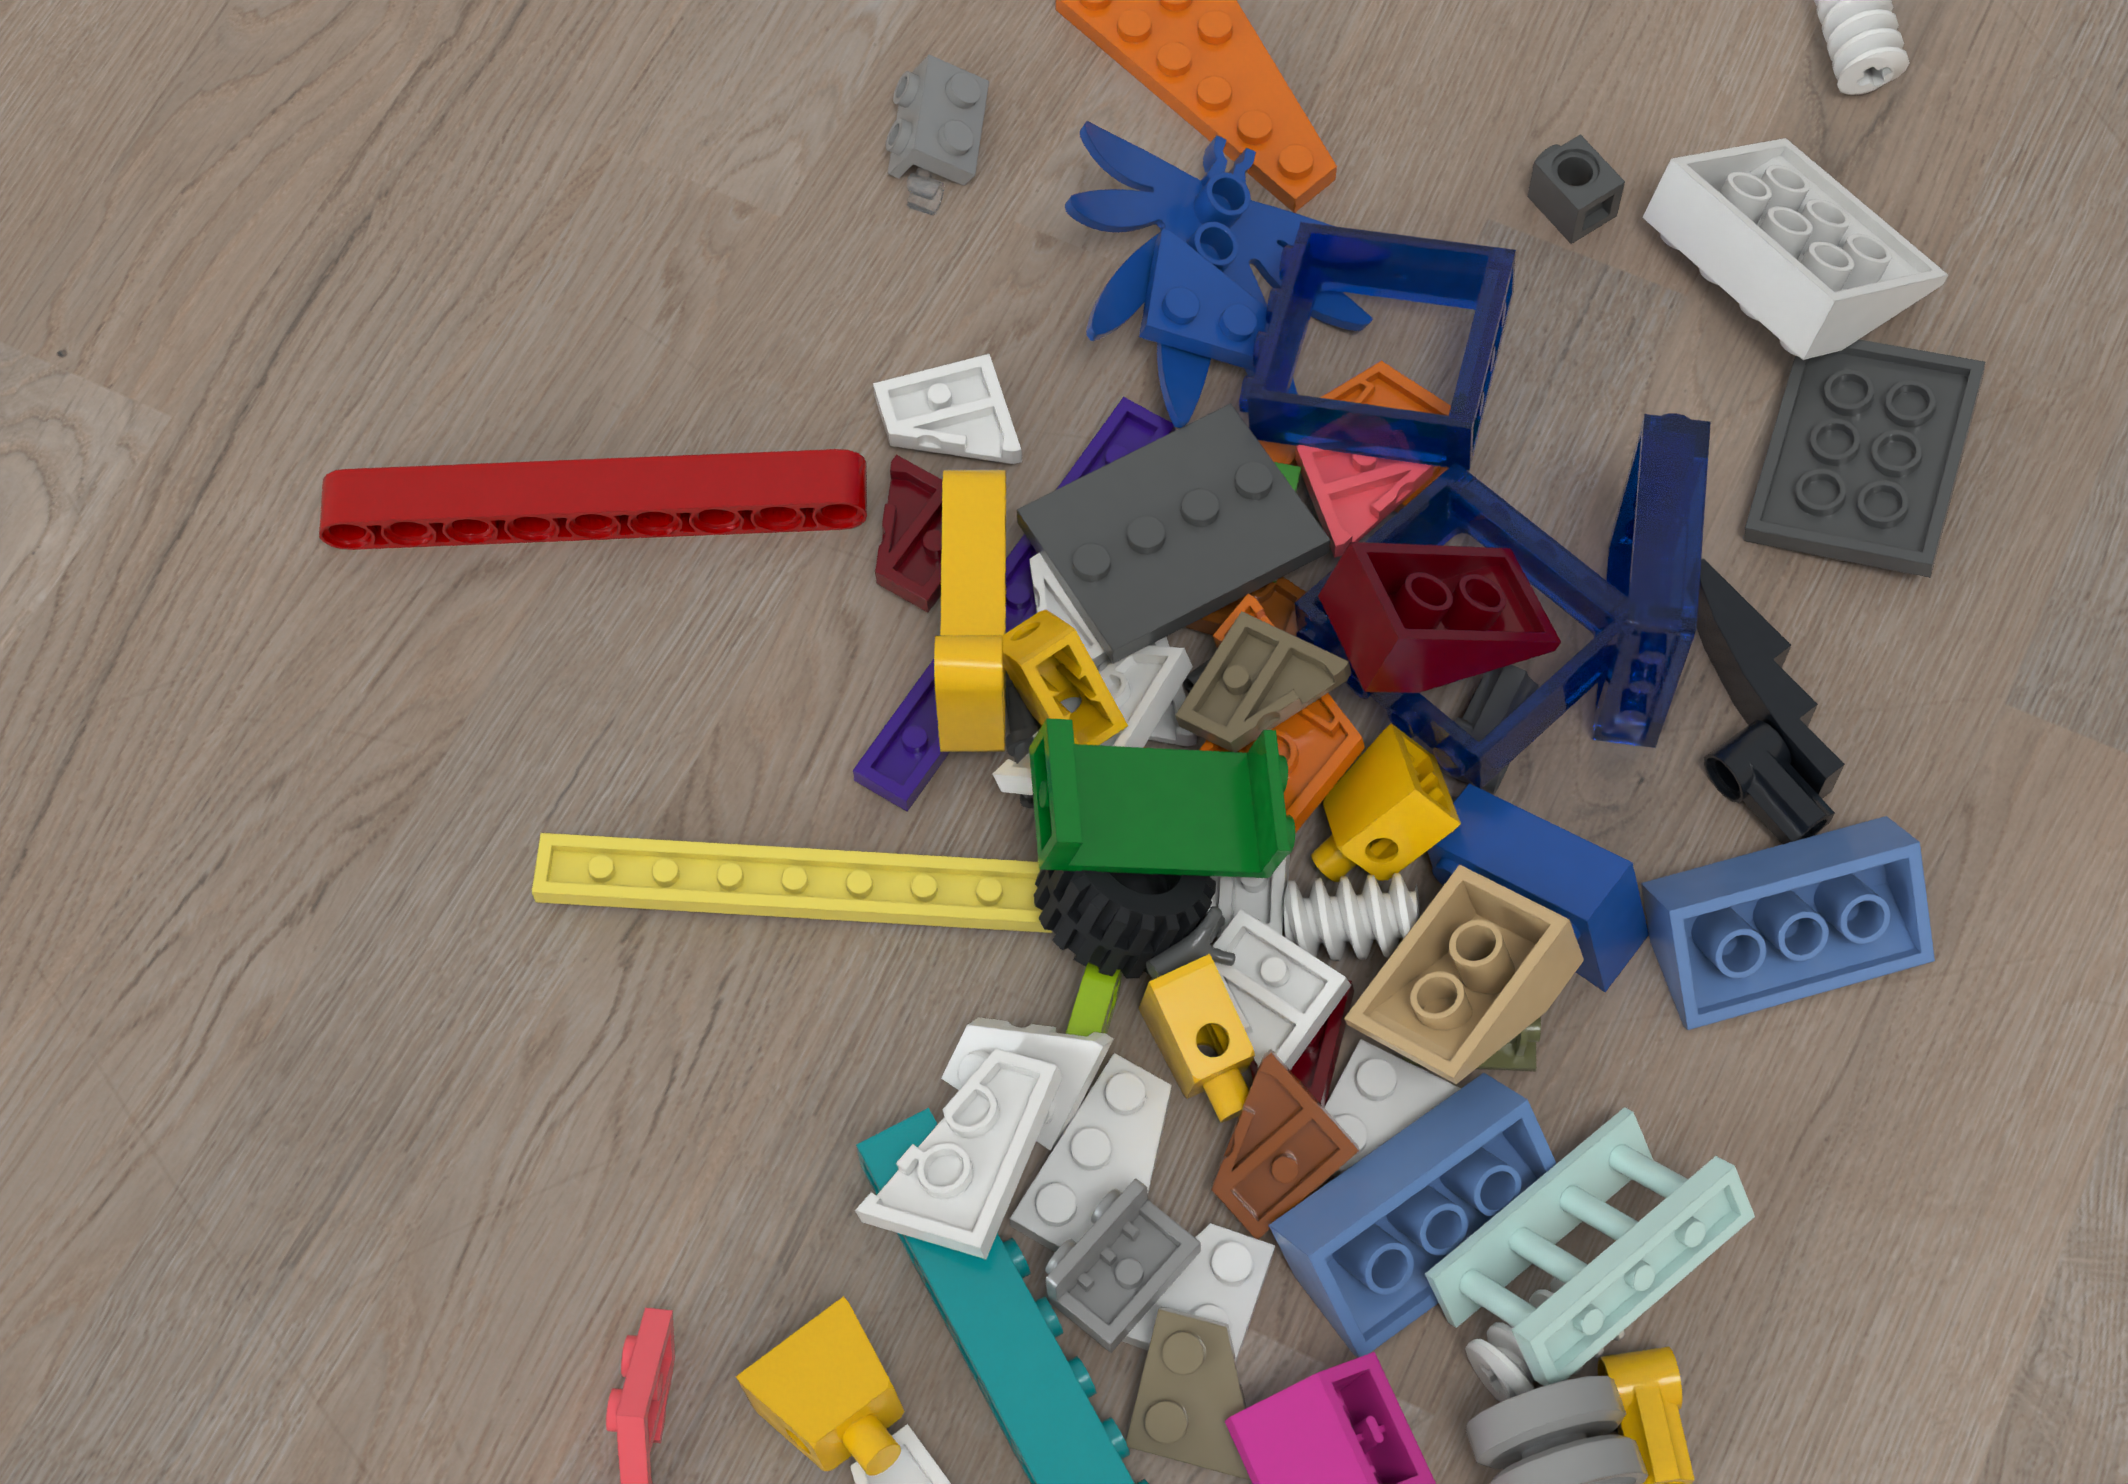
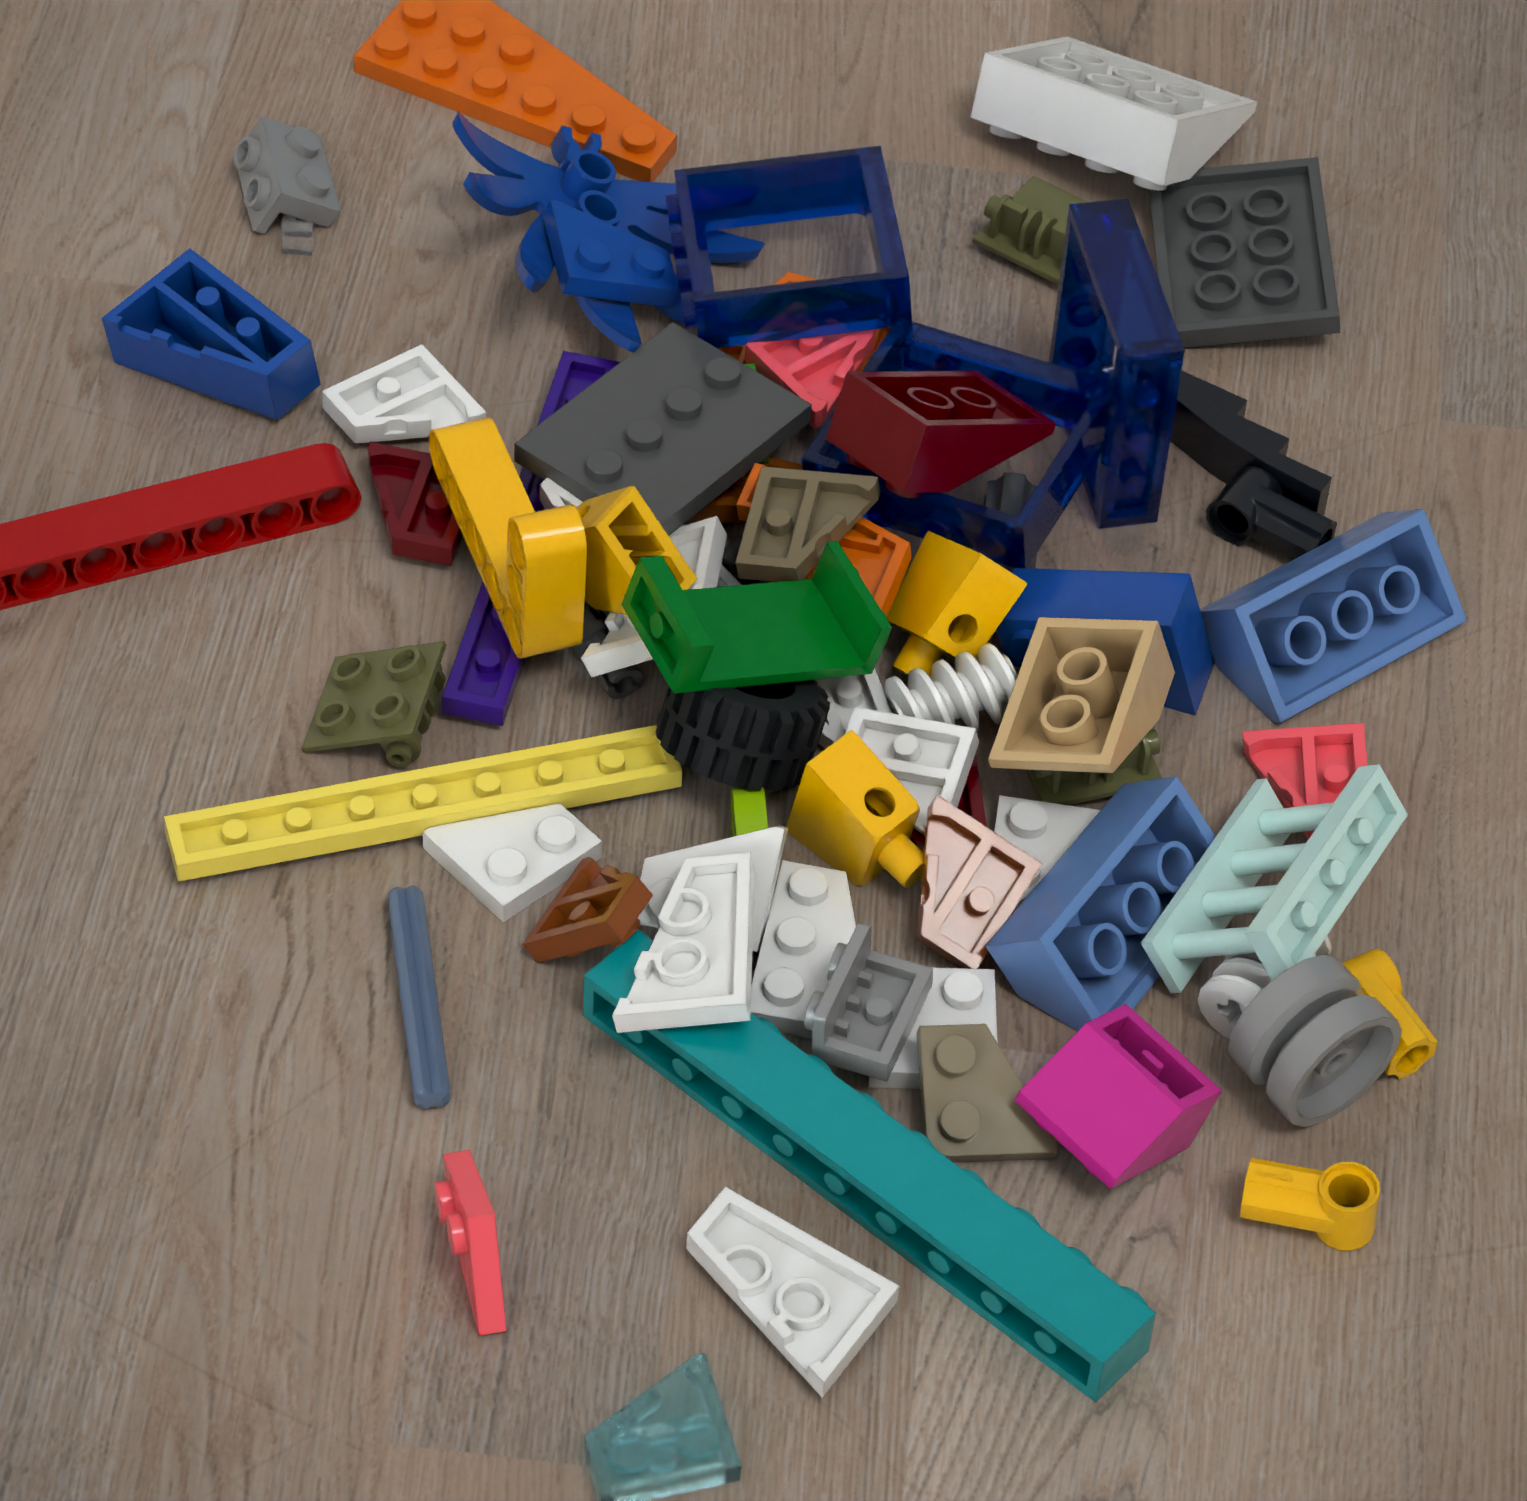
camera: 25 degrees left, 15 degrees down
(707, 1104) = (418, 998): none -> sand blue axle
(787, 298) = (212, 339): none -> blue wedge
(795, 754) = (379, 700): none -> olive hinge
(828, 1393) = (641, 1180): yellow torso -> none
(862, 965) = (513, 855): none -> white wing
(898, 1064) = (589, 912): none -> dark orange wing
(1193, 947) = (828, 735): dark grey bar -> none
(1579, 207) = (901, 107): dark grey brick -> none
(1675, 367) = (1029, 227): none -> olive hinge
(1697, 1104) = (1307, 762): none -> coral wing

